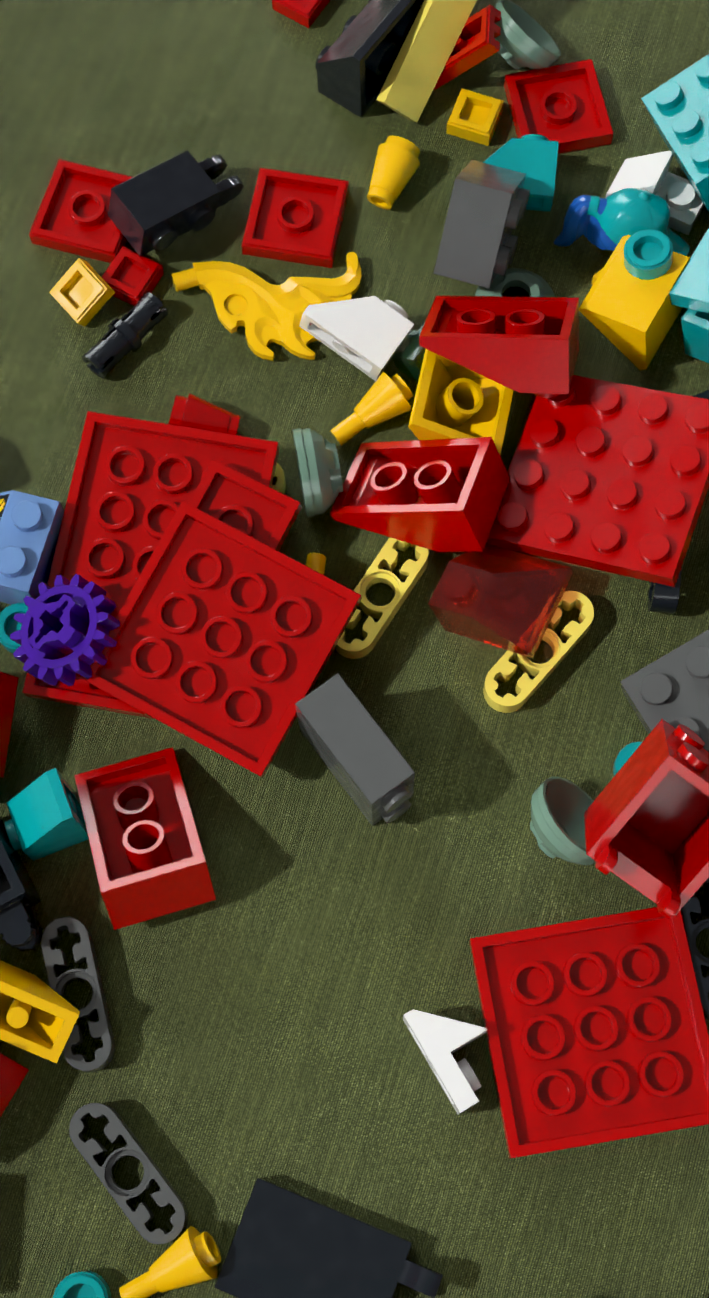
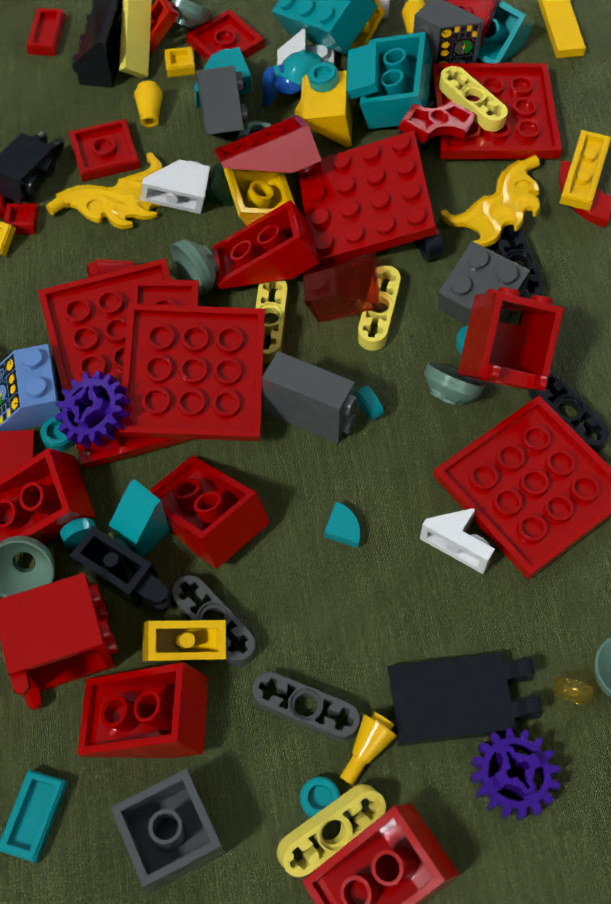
camera: 30 degrees left, 10 degrees down
(125, 335) = (34, 248): black pin -> none
(310, 951) = (343, 526): none -> teal tile
(382, 402) = (213, 218): yellow cone -> none
(439, 793) = (369, 403): none -> teal tile

